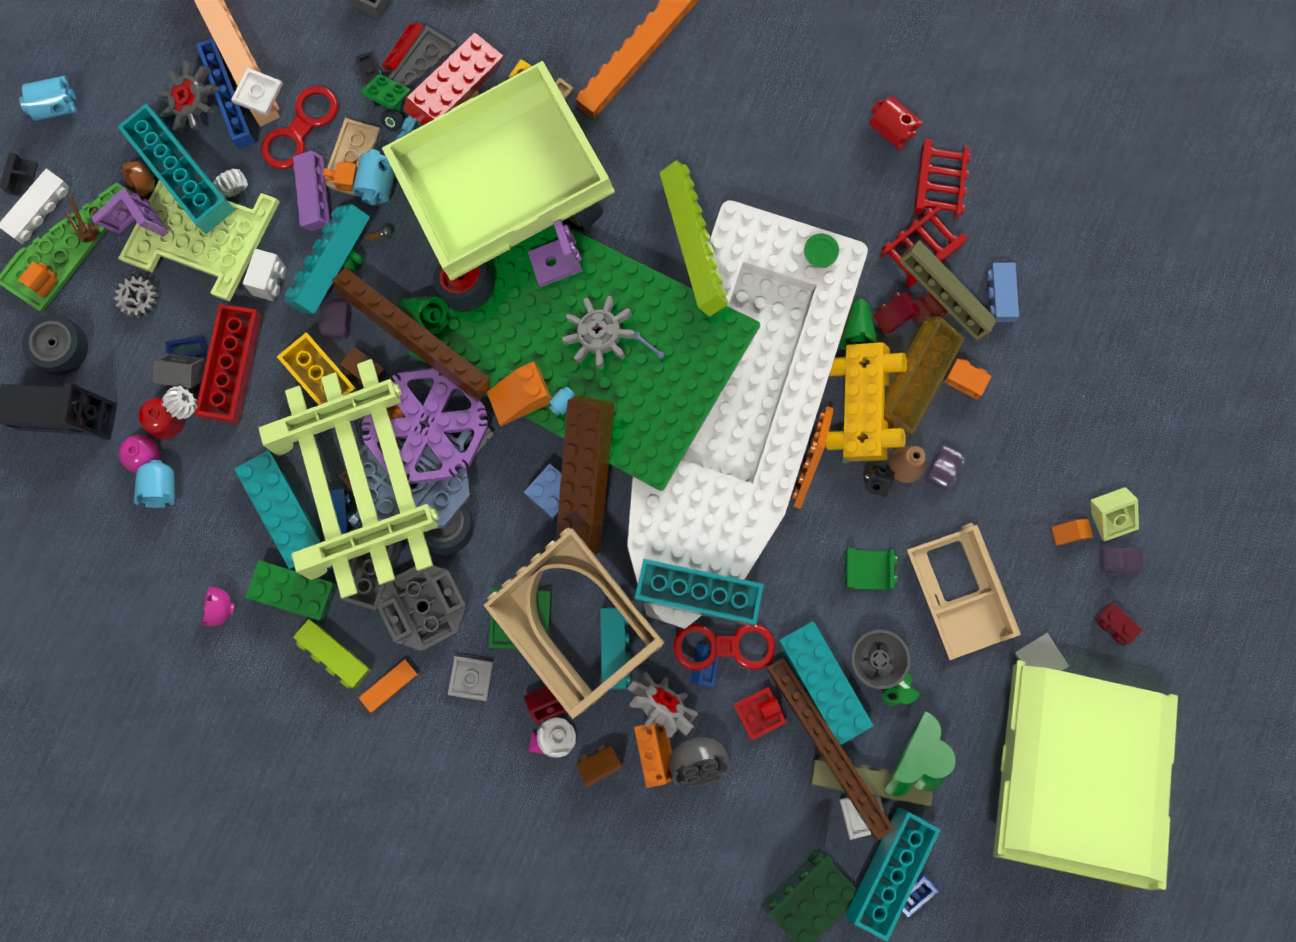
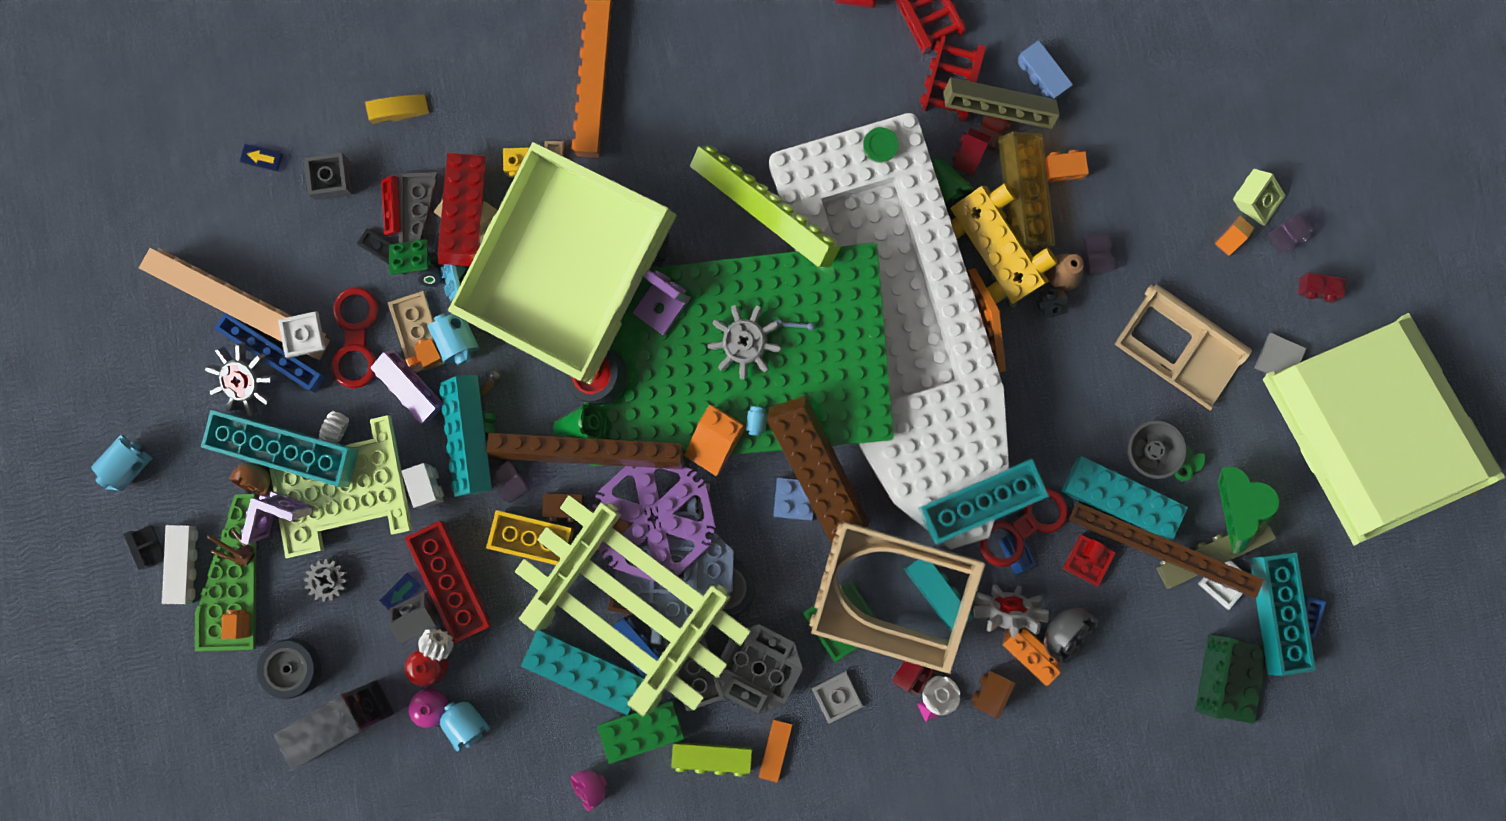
camera: 30 degrees left, 5 degrees up
(870, 569) = (1095, 380): green panel -> none

